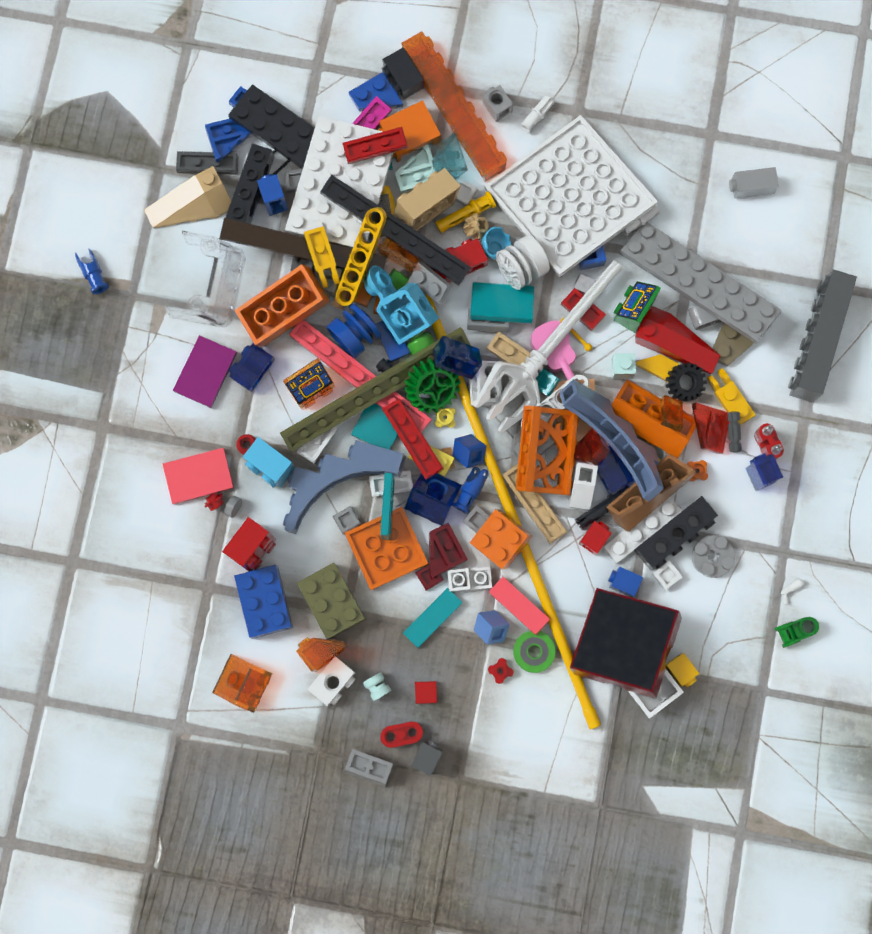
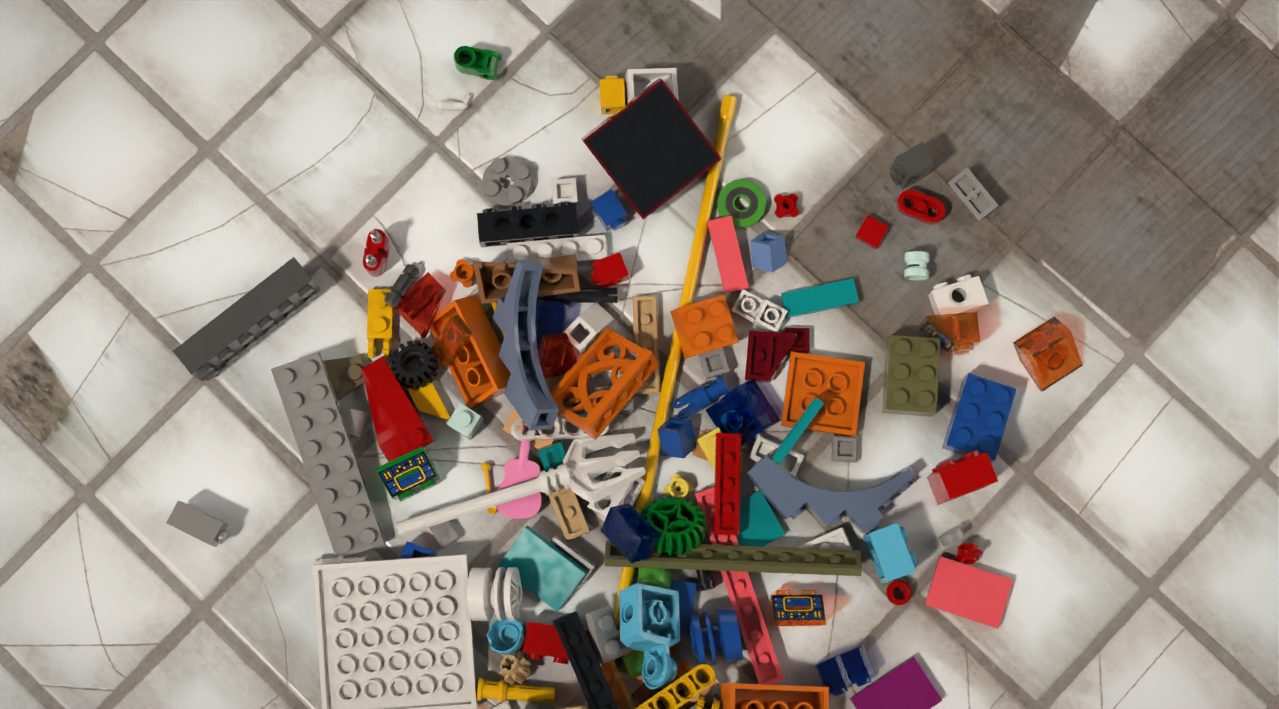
camera: 150 degrees left, 0 degrees up
(592, 316) = (459, 493): red plate -> none
(763, 471) = (403, 225): clear blue brick -> none

